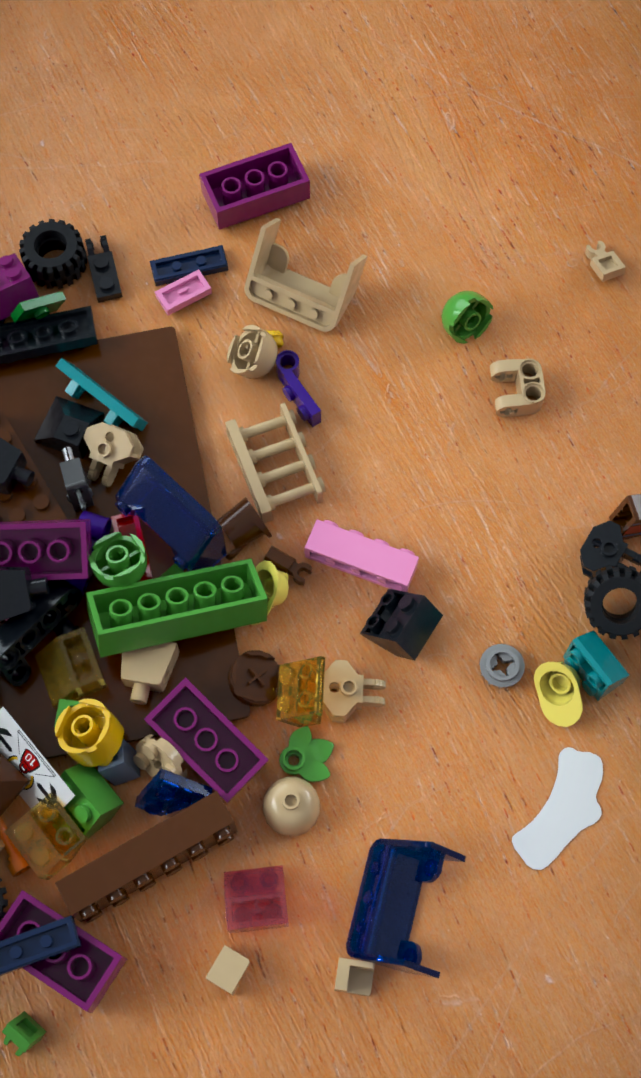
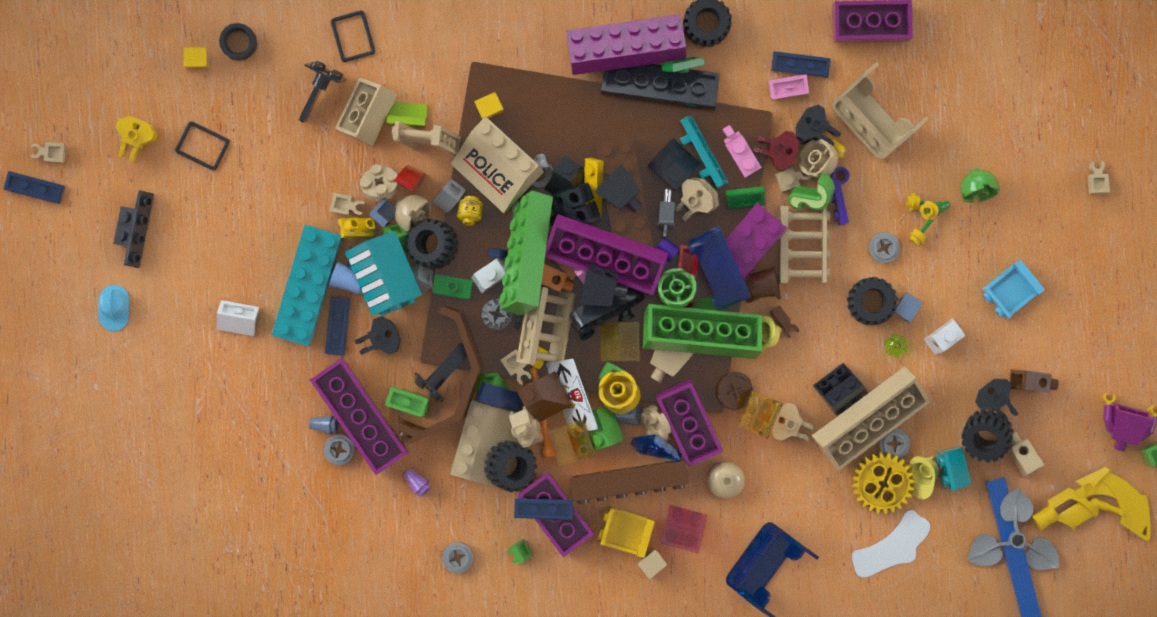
camera: 20 degrees right, 20 degrees up
(103, 271) = (738, 46): black hinge -> none
(150, 381) = (740, 152): none -> bright pink hinge
(173, 938) = (626, 531): none -> yellow panel
(175, 429) = (745, 197): none -> green plate
(201, 361) = (777, 149): none -> dark red hinge
(207, 463) = (754, 238): none -> magenta brick
(227, 395) = (789, 178): none -> tan plate
(229, 317) = (818, 125): none -> black hinge
(267, 399) = (813, 198): none -> bright green animal
(311, 756) = (750, 452): bright green plate -> none
(354, 976) = (724, 595): tan panel -> none
(361, 556) = (833, 335): bright pink brick -> none
(378, 419) = (893, 249): none -> light grey gear
(392, 475) = (888, 297): none -> black tyre
(414, 354) = (929, 211): none -> yellow plant
(442, 484) = (908, 307): none -> sand blue panel
(448, 547) = (891, 348): none -> clear neon green plant
(455, 640) = (871, 418): none -> tan brick
(506, 498) = (944, 337): none -> white torso
(519, 403) = (996, 254): tan piece -> none
(536, 724) = (899, 489): none -> yellow gear
(564, 418) = (1012, 289): none -> medium azure panel

